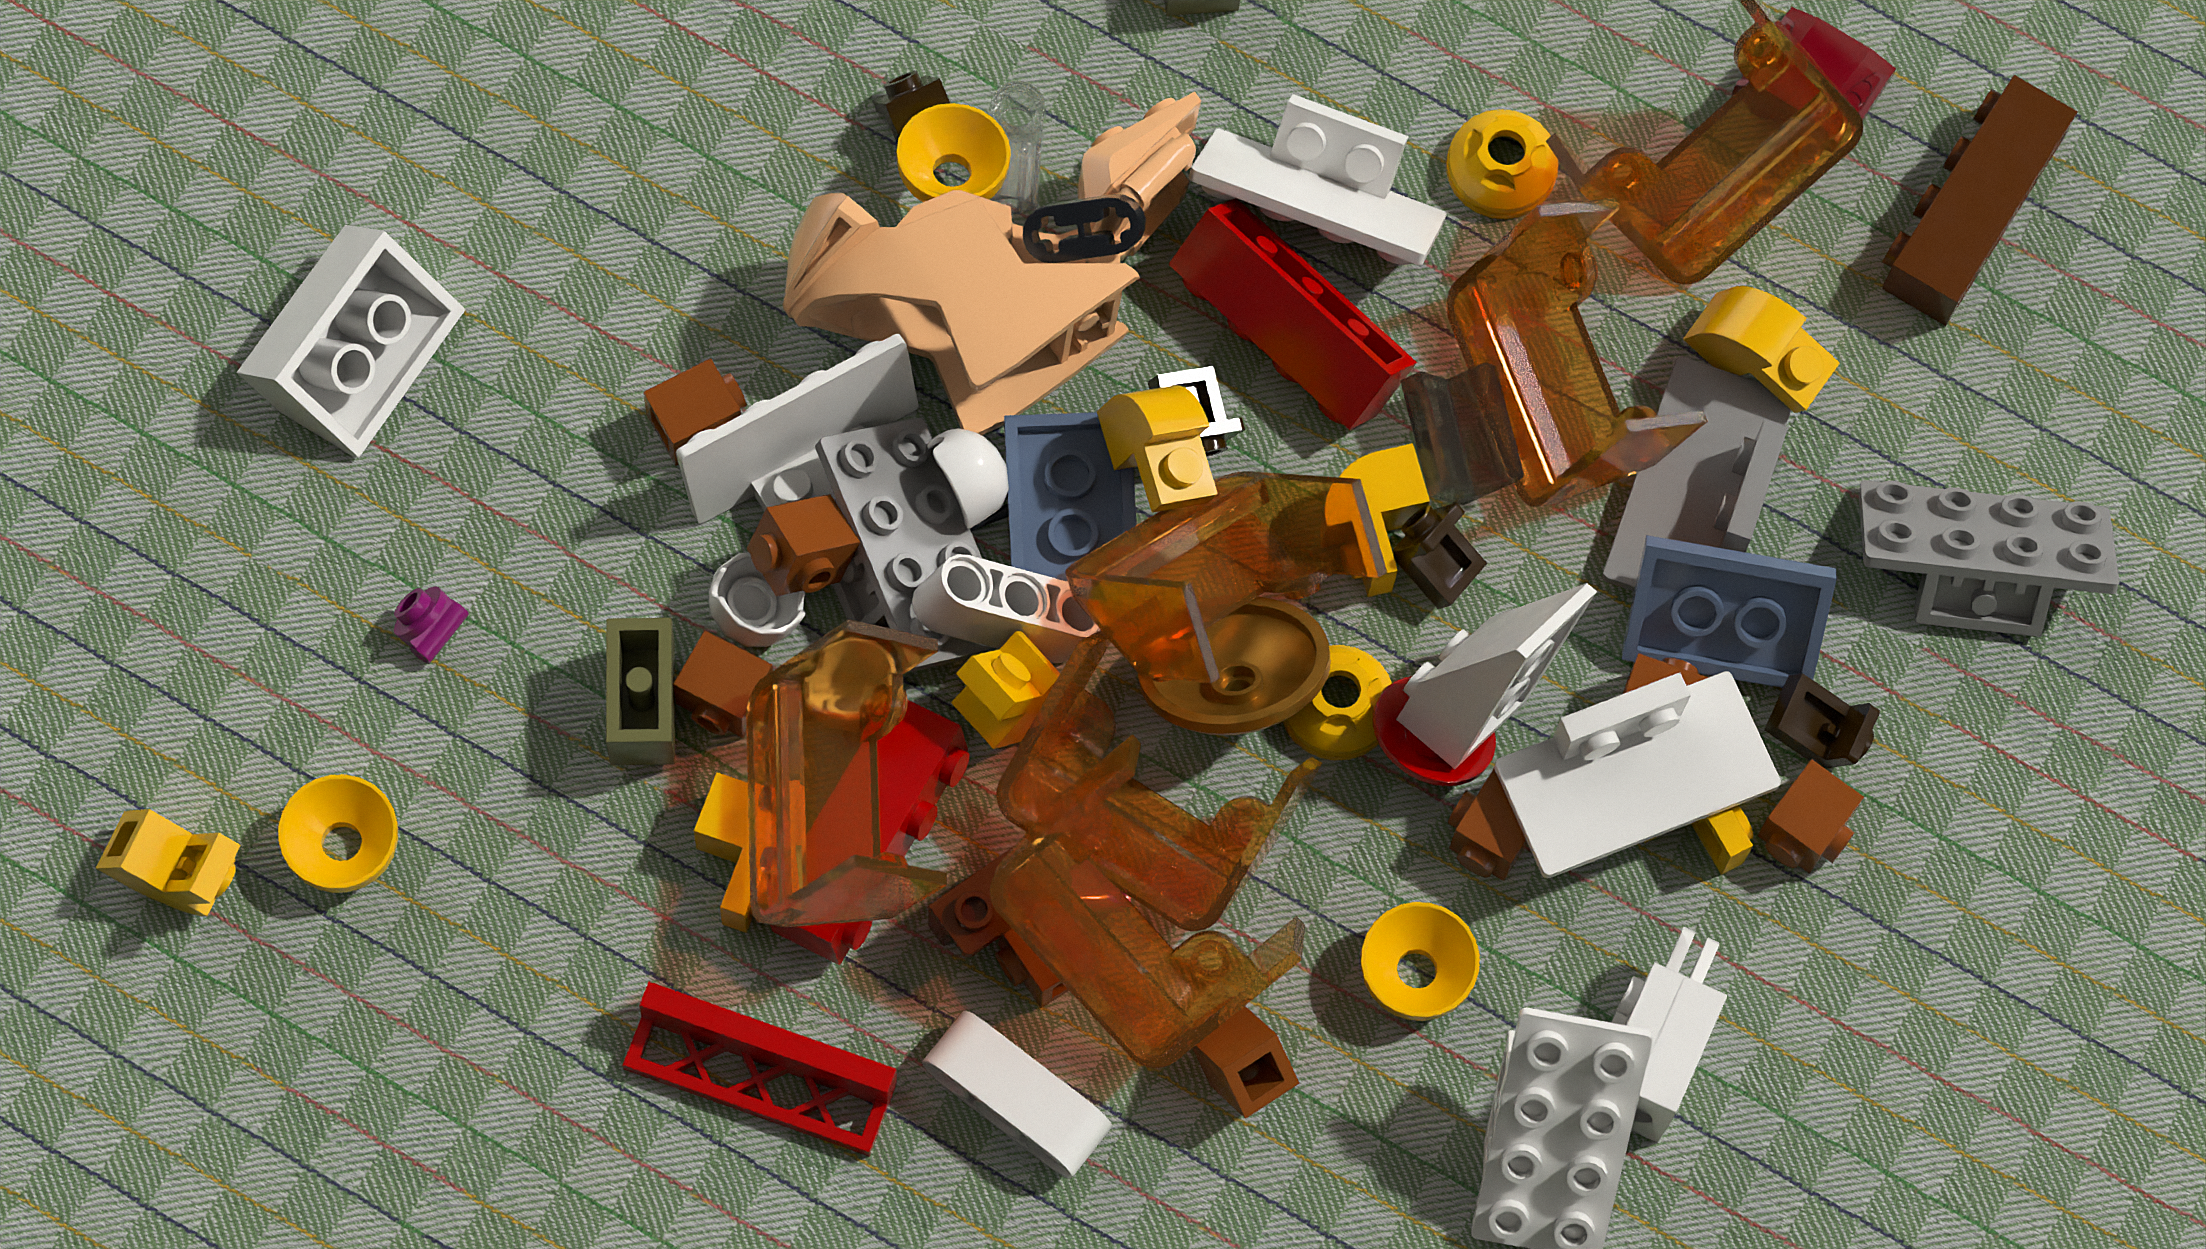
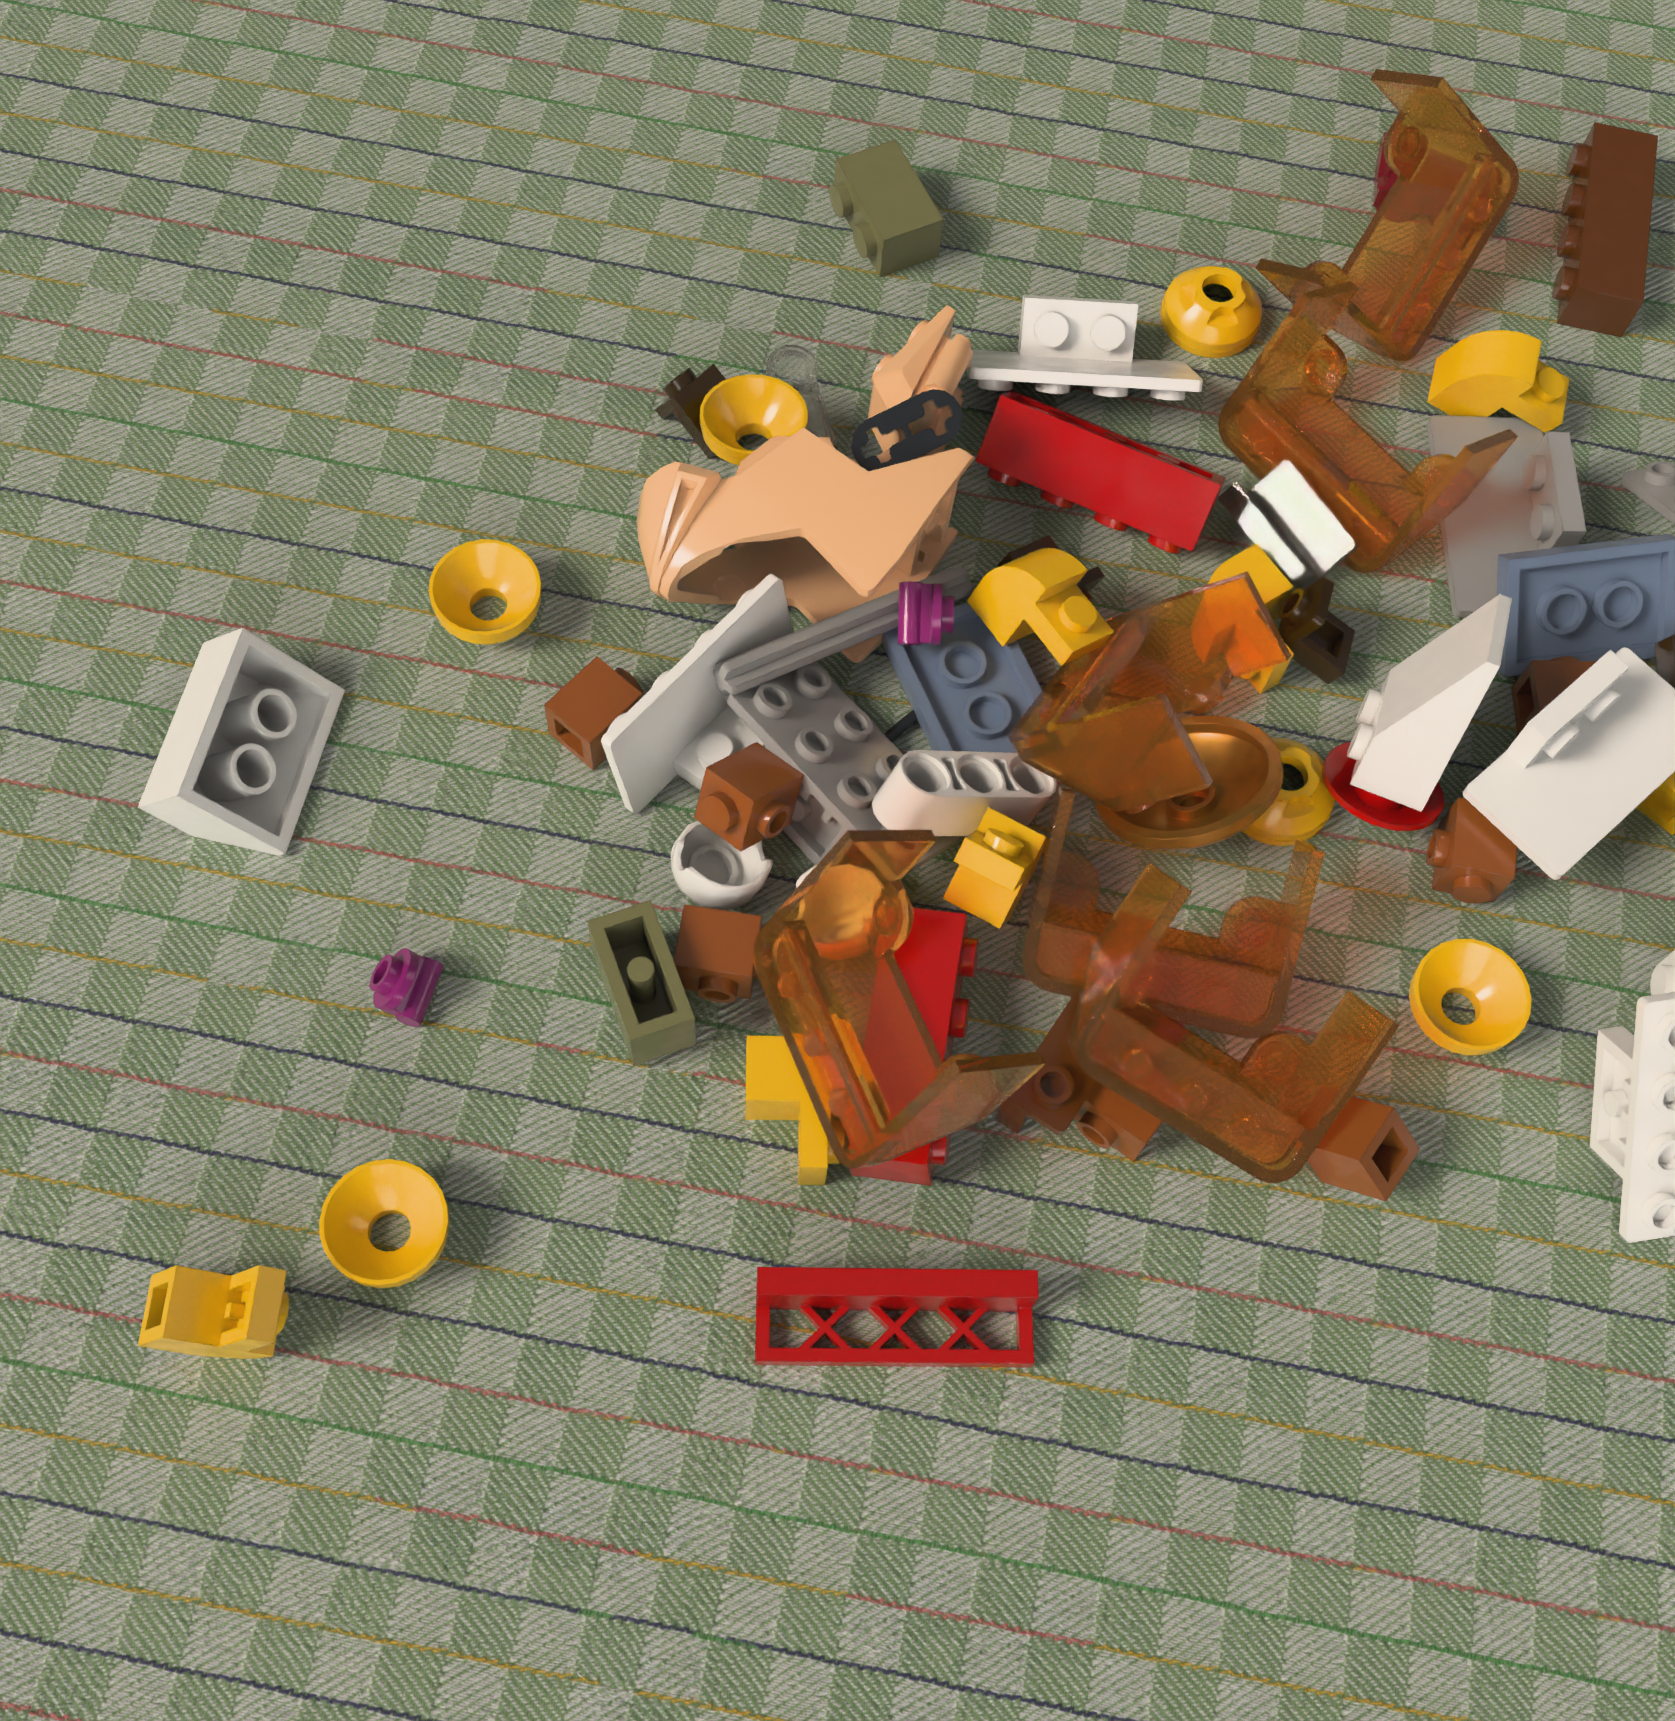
camera: 20 degrees left, 5 degrees down
(625, 228) = (480, 571): none -> yellow piece
(960, 406) = (825, 637): none -> light grey axle
(973, 471) = (876, 686): white hair -> none
(1017, 1094) = (1154, 1254): white beam -> none
(1044, 415) = (923, 613): none -> magenta plate

